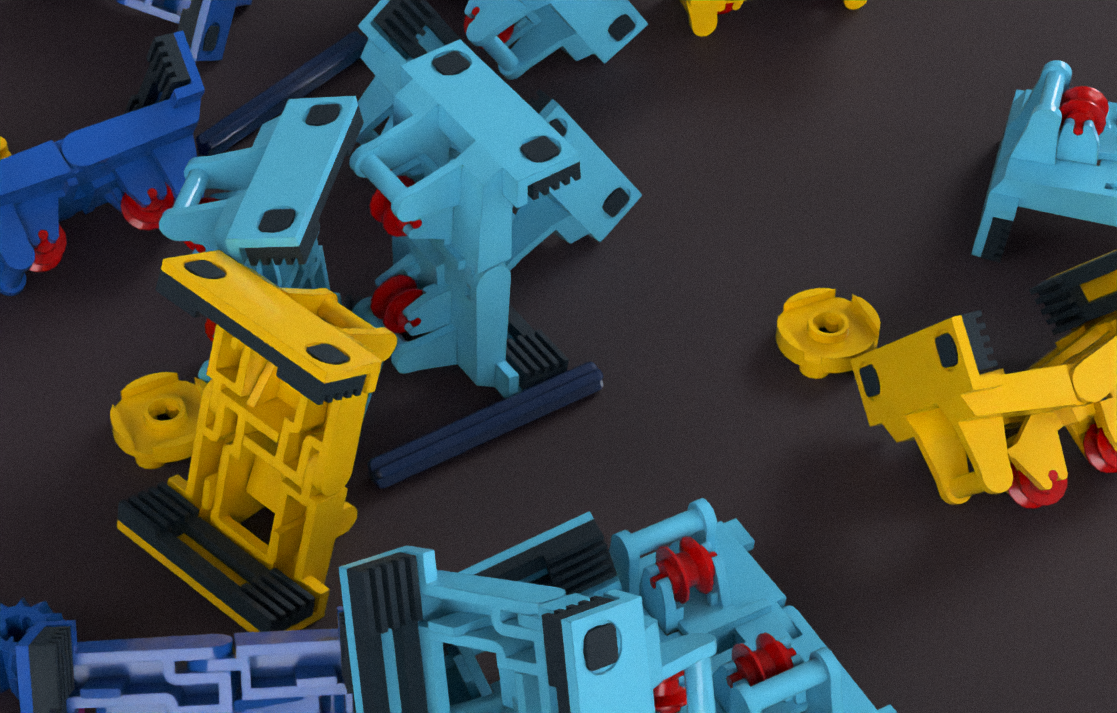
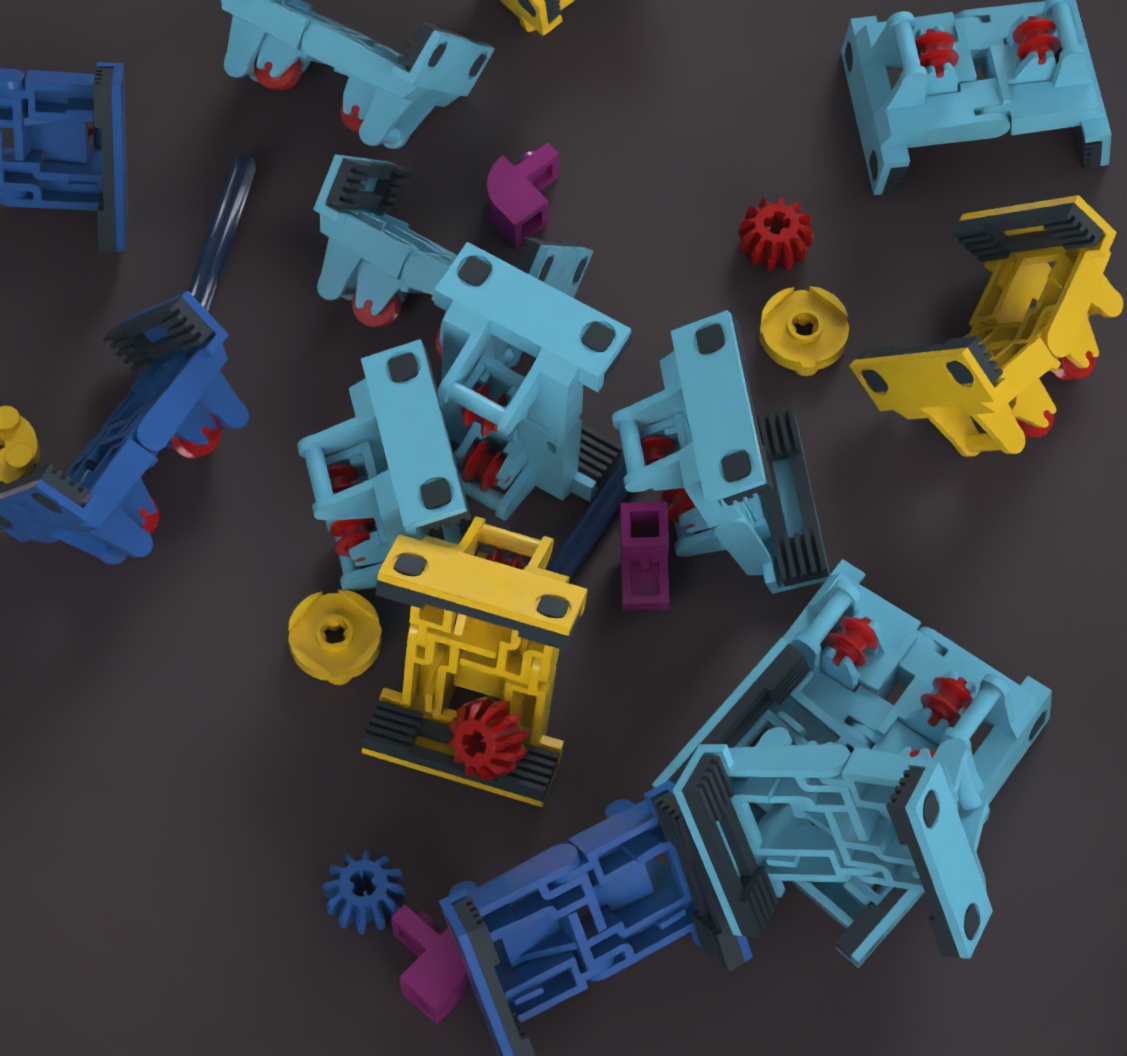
camera: 25 degrees left, 20 degrees up
(235, 535) = (487, 738): none -> red gear
(531, 450) = (644, 556): none -> magenta brick
(616, 125) = (515, 196): none -> magenta brick
(637, 364) = (724, 461): none -> medium azure container
(843, 244) = (775, 234): none -> red gear

